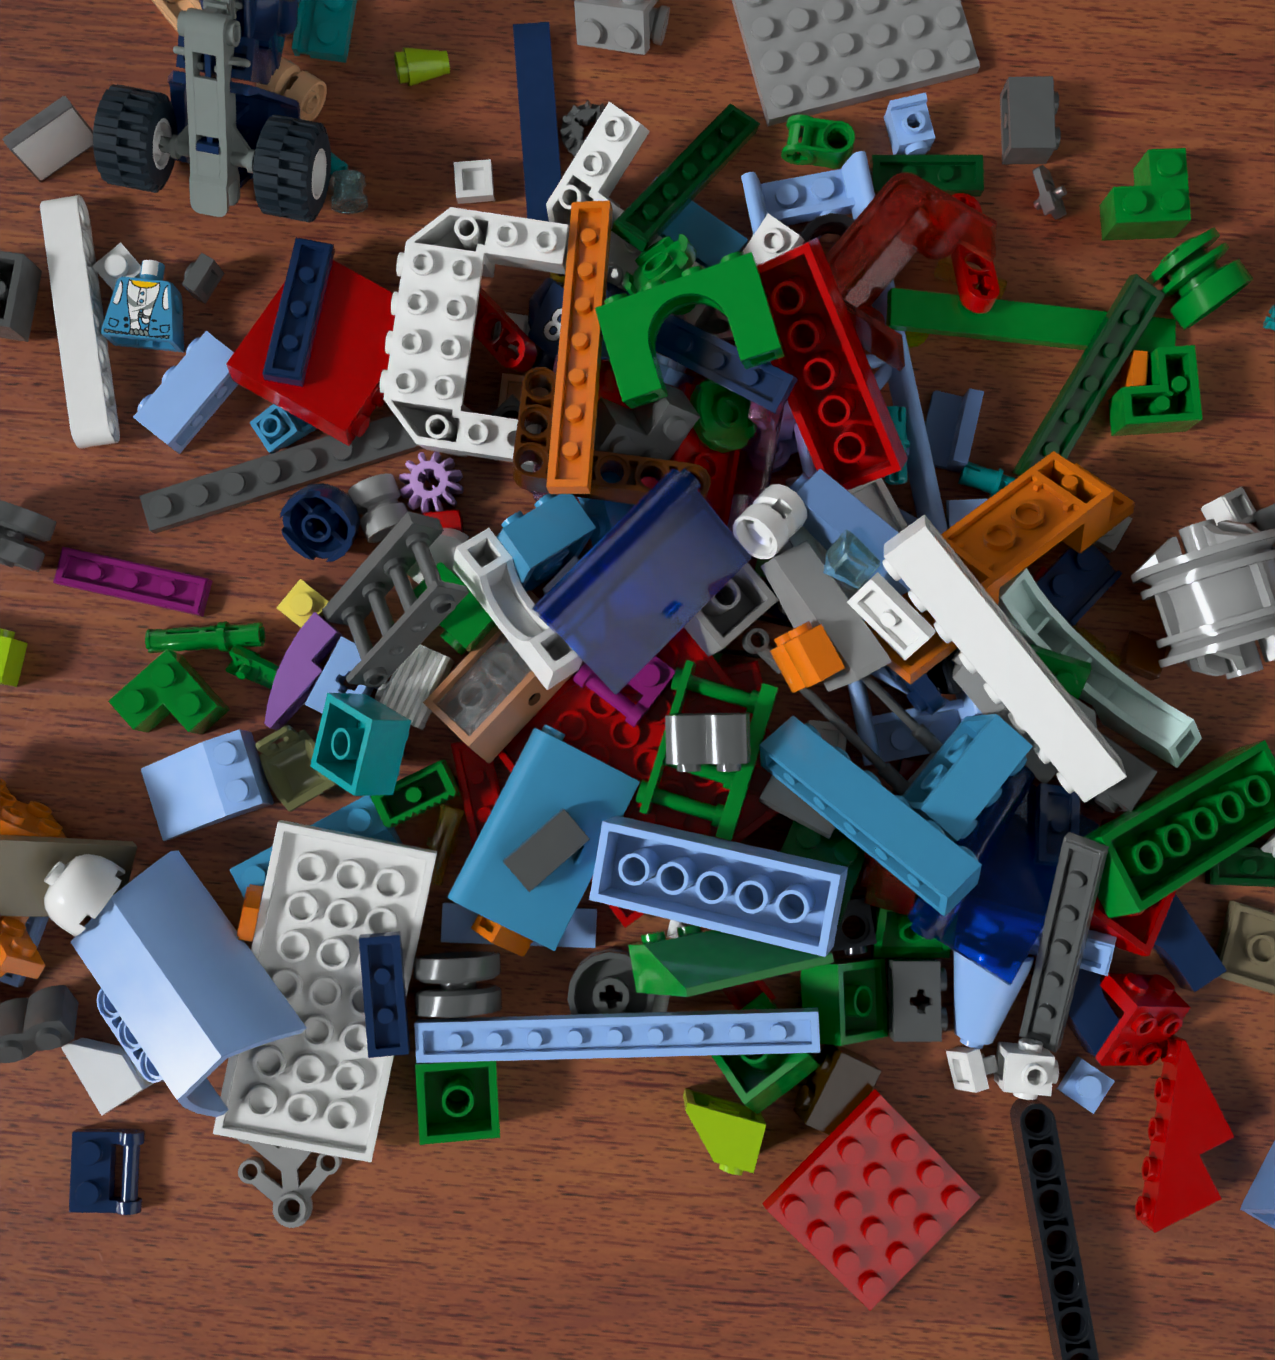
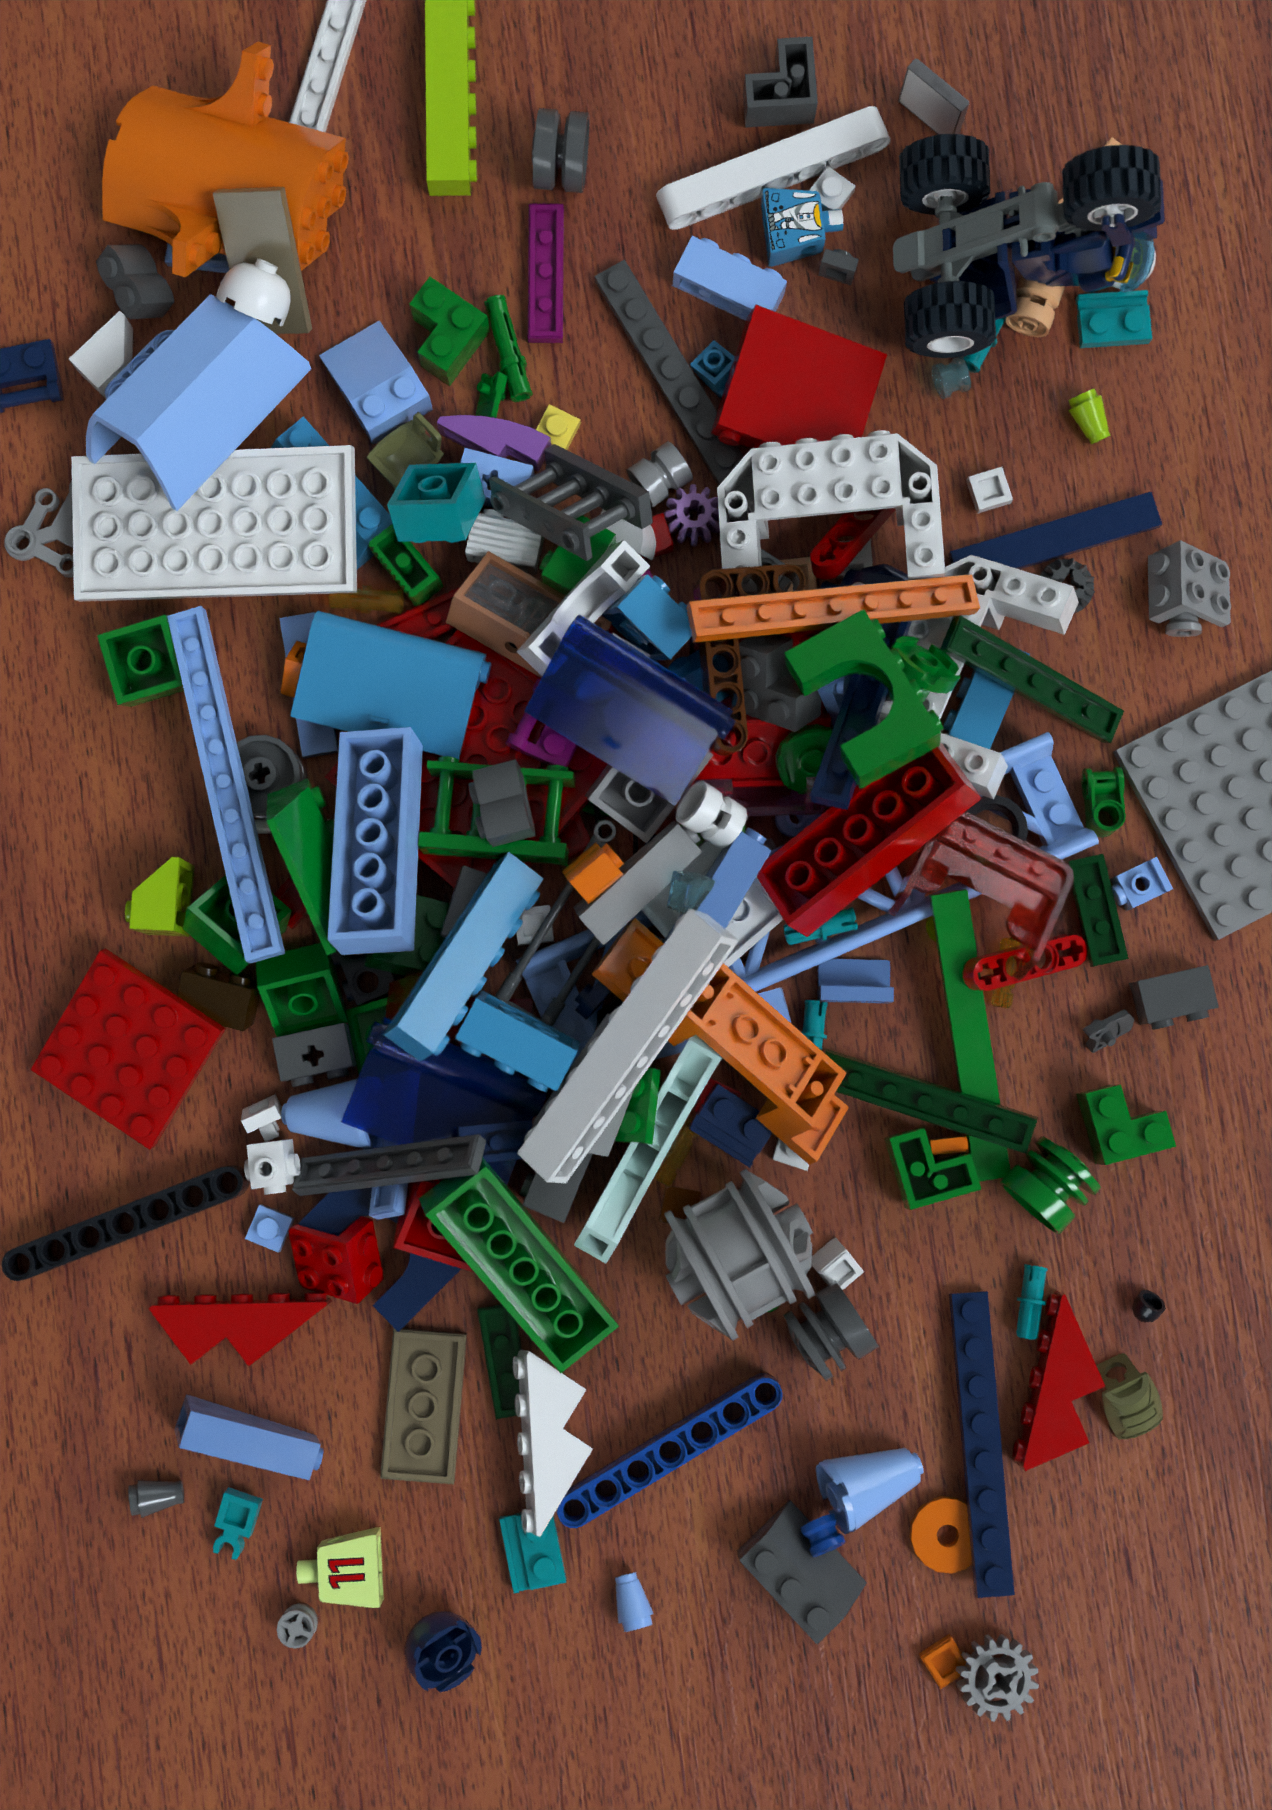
camera: 75 degrees right, 0 degrees up
(250, 912) = (267, 440): orange tile -> none
(299, 312) = (820, 357): dark blue tile -> none
(320, 522) = (633, 423): dark blue cylinder -> none
(384, 994) = (220, 573): dark blue plate -> none
(458, 988) = (239, 639): dark grey wheel -> none
(546, 850) = (376, 686): dark grey tile -> none
(891, 616) = (644, 937): white panel -> none

